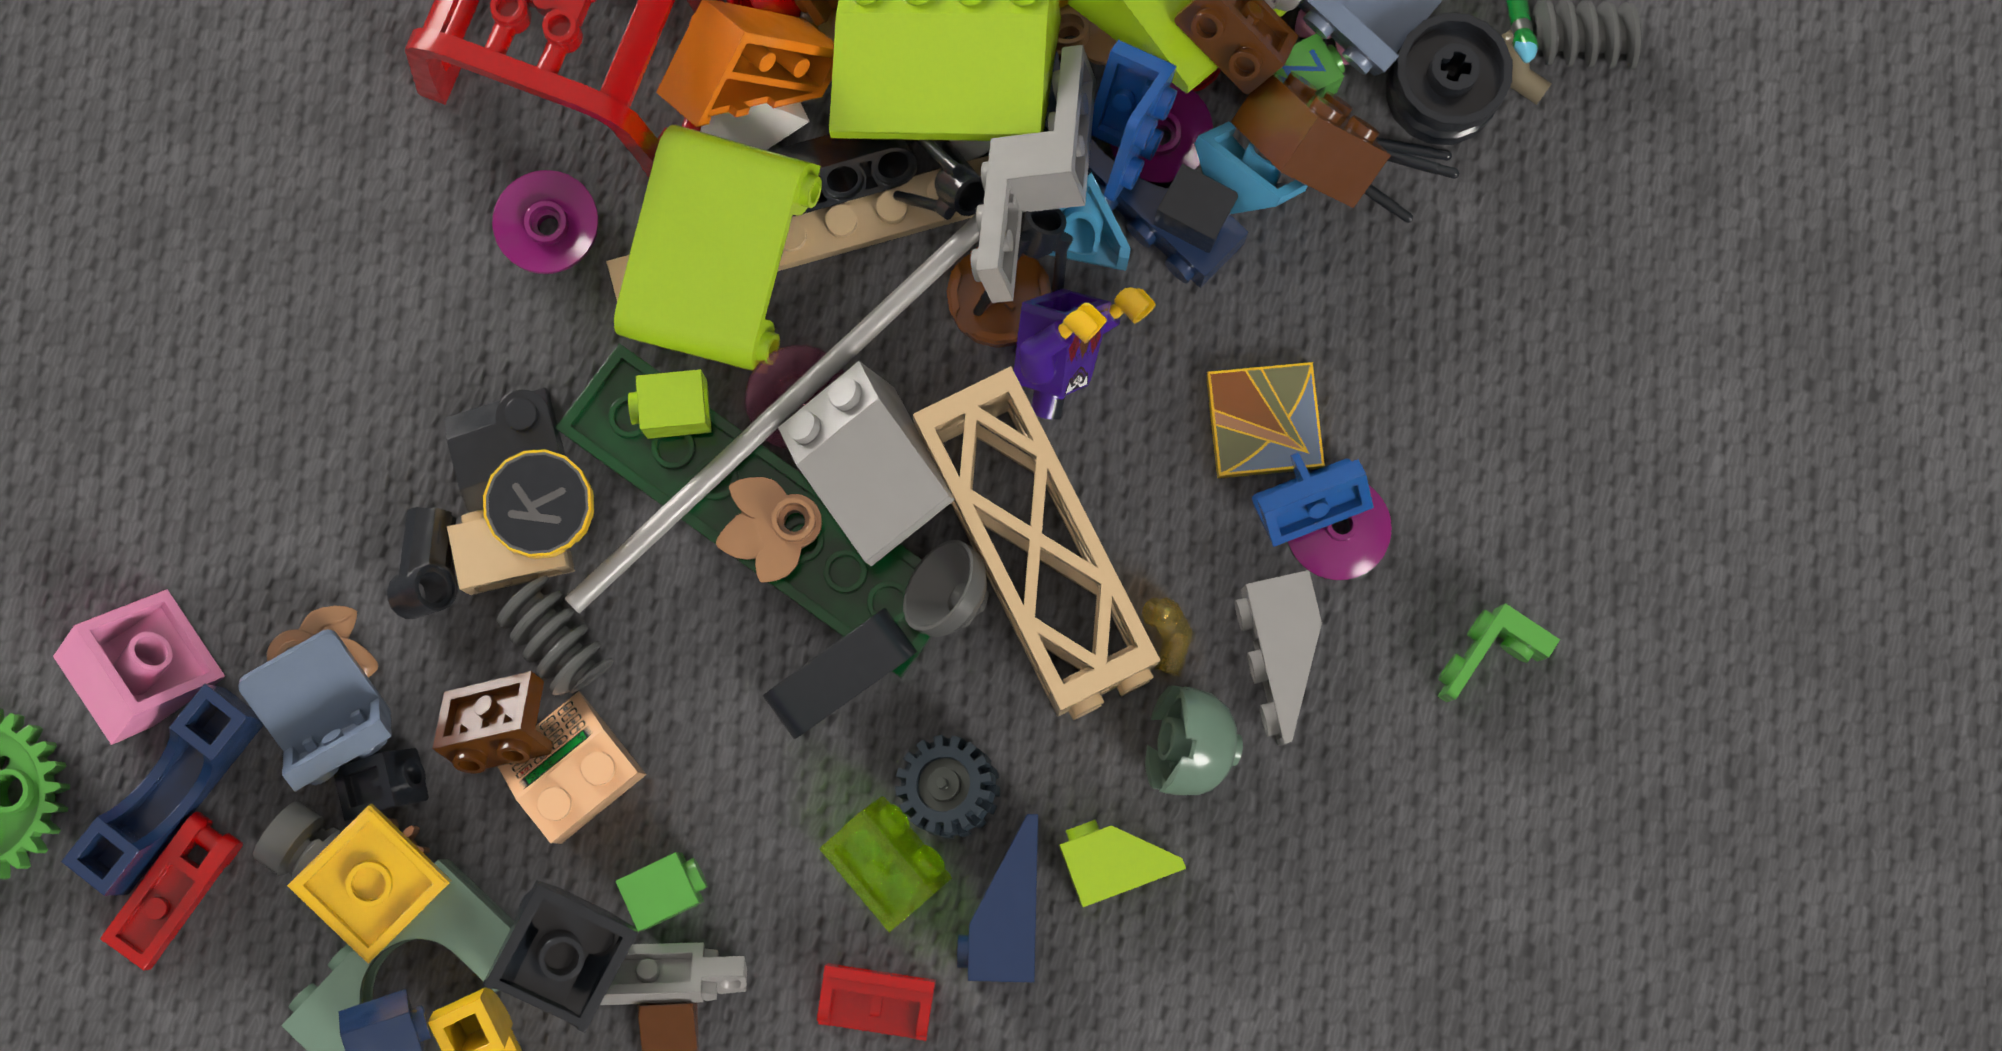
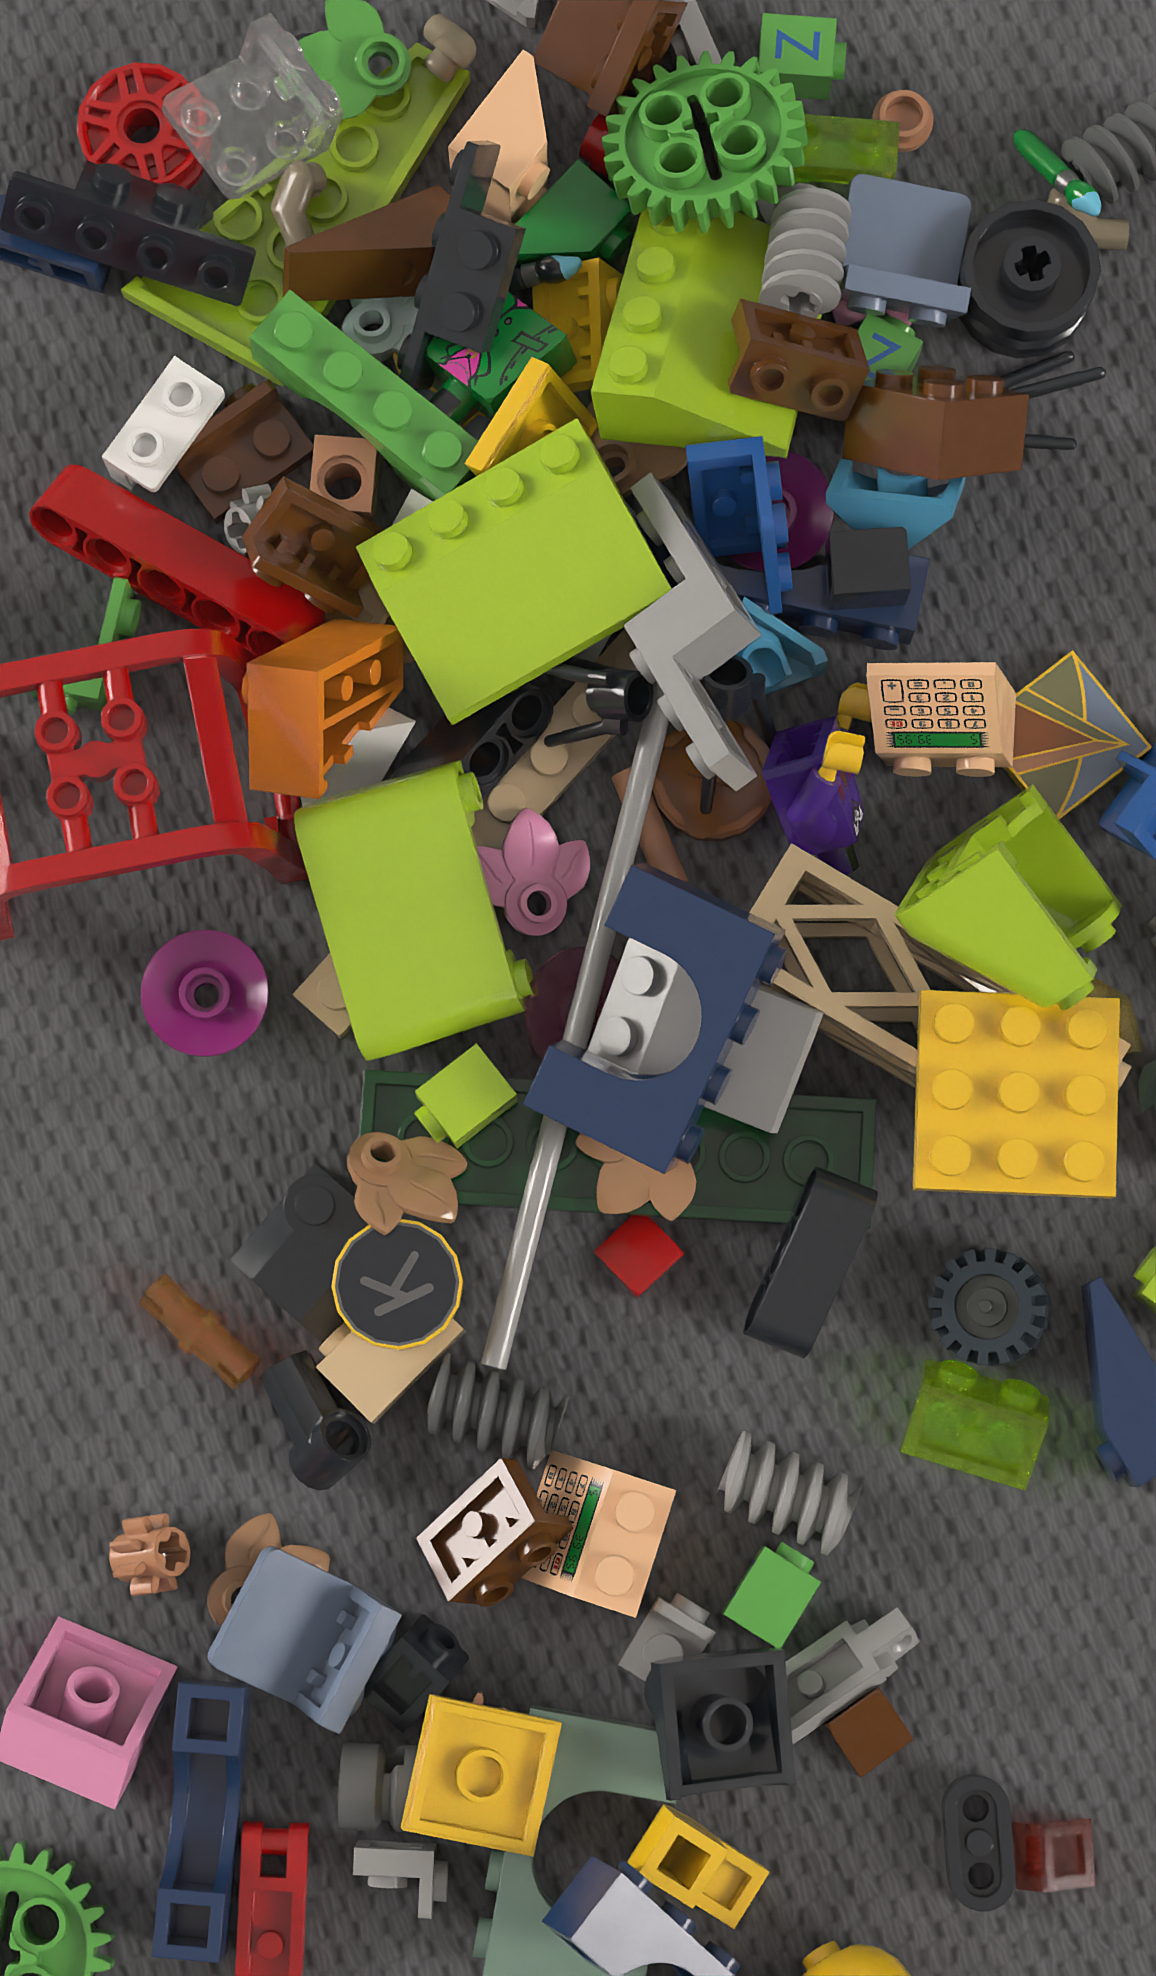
camera: 30 degrees left, 0 degrees up
(252, 584) = (149, 1554): none -> nougat gear
(279, 906) = (393, 1862): none -> light grey bracket
(389, 454) = (199, 1331): none -> clear orange pin
(574, 870) = (667, 1632): none -> light grey bracket
(594, 439) = (410, 1182): none -> medium nougat plate
(718, 827) = (787, 1493): none -> light grey piece
(728, 594) = (639, 1253): none -> red slope
(828, 272) = (531, 864): none -> bright pink plate
(876, 1001) = (1057, 1567): red hinge -> none
(904, 417) = (727, 960): none -> dark blue arch
(929, 315) = (654, 838): none -> nougat piece
(946, 590) = (851, 1109): dark grey piece -> none
(1053, 643) = (1016, 1095): none -> yellow plate
(1145, 511) = (1015, 903): none -> lime windscreen
(1183, 347) = (942, 717): none -> light nougat slope

